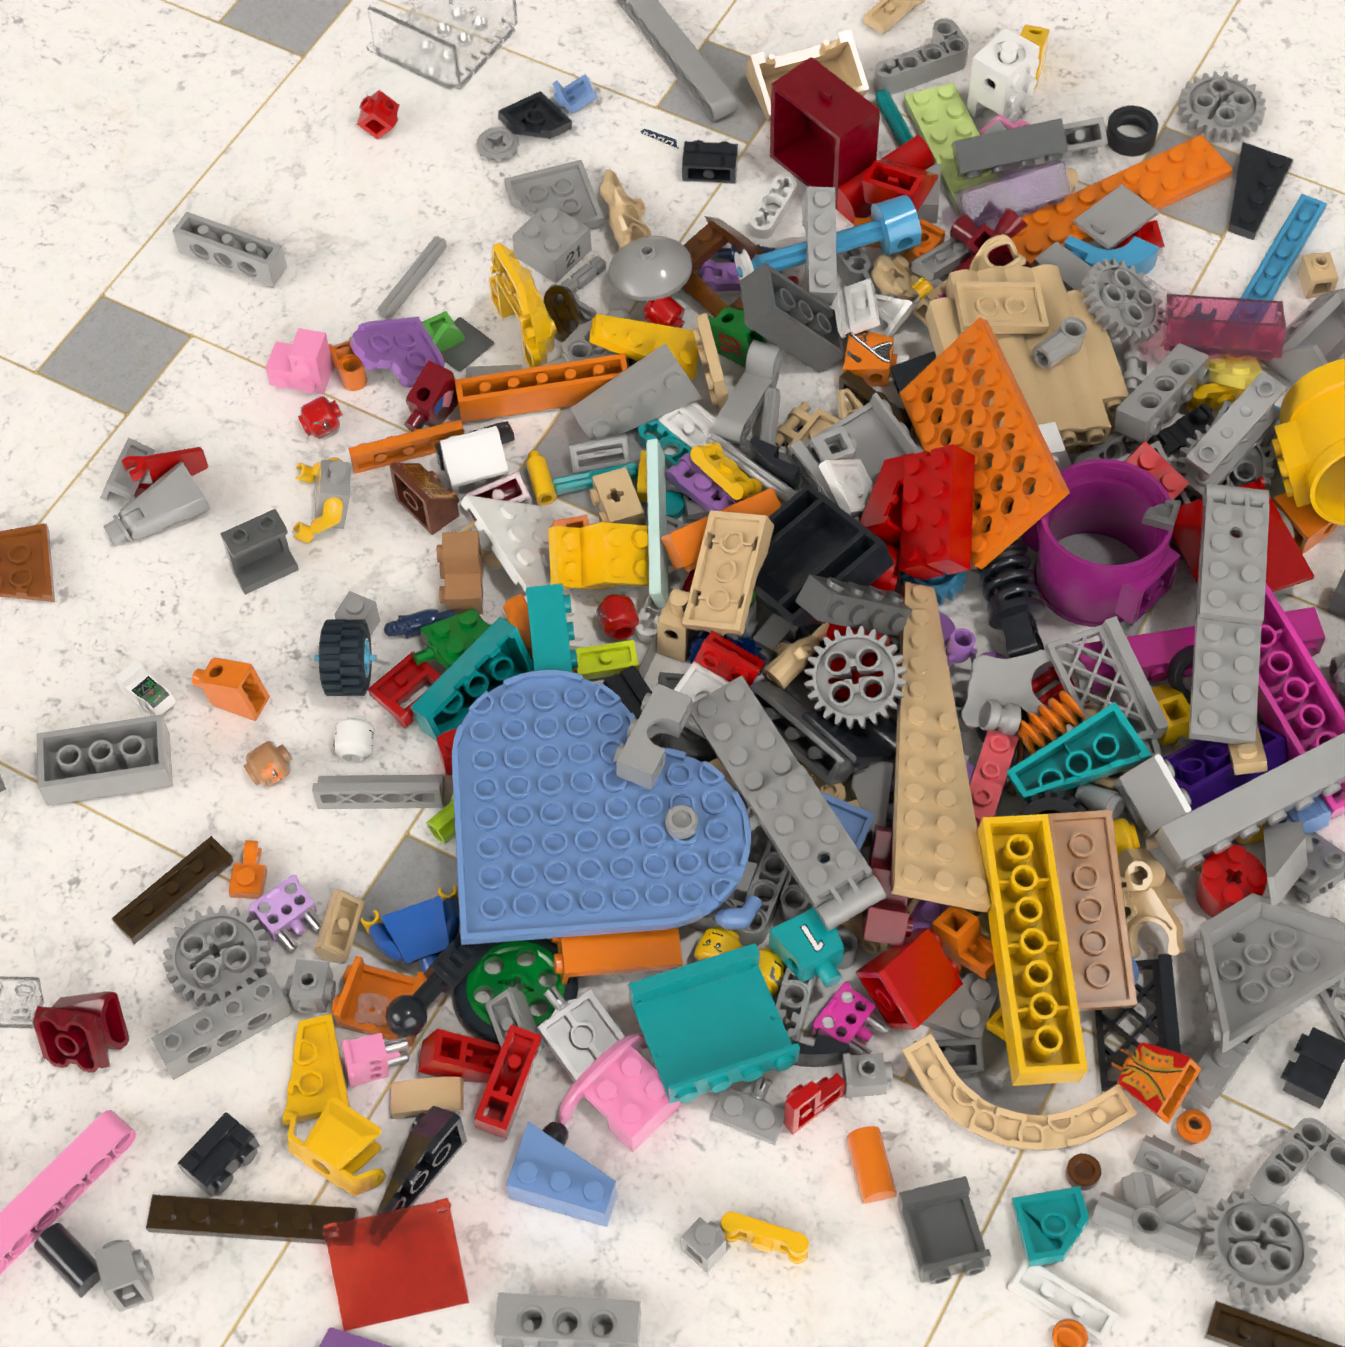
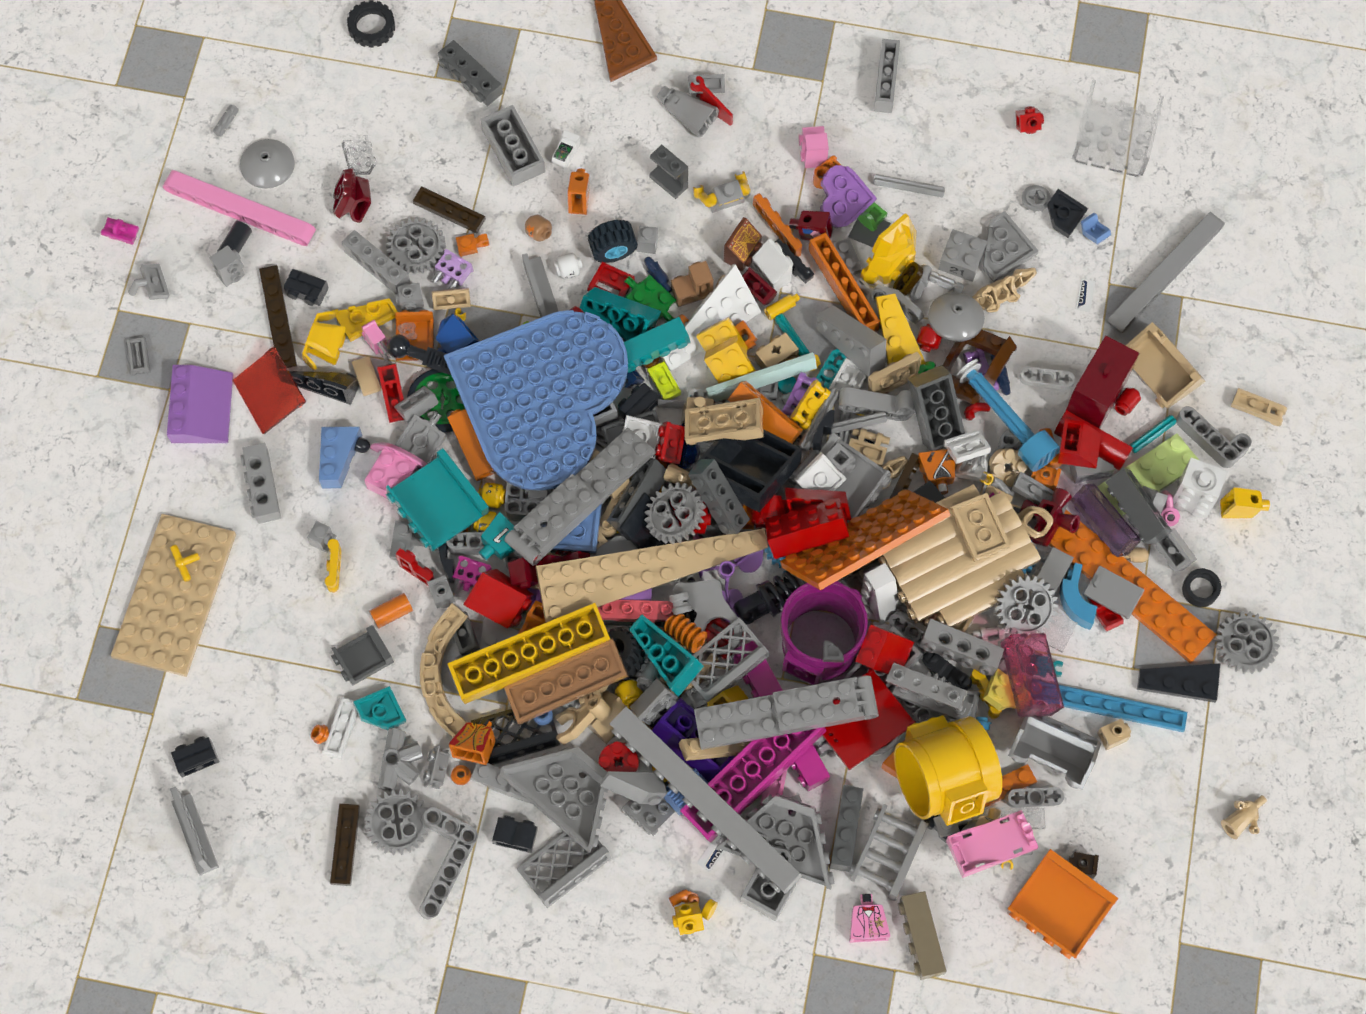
camera: 70 degrees right, 10 degrees up
(320, 417) = (781, 171): red head -> none
(507, 1082) = (378, 410): red slope -> none
(587, 444) = (810, 331): light grey tile -> none
(617, 616) = (694, 378): red head -> none
(662, 712) = (580, 408): light grey arch -> none
(681, 821) = (549, 445): light grey tile -> none
(709, 162) = (1067, 328): black brick -> none
(739, 917) = (509, 498): medium blue arm -> none
(820, 230) = (989, 411): light grey arch -> none
(1062, 343) = (963, 569): light grey piece -> none
(1083, 1171) = (418, 722): reddish brown tile -> none

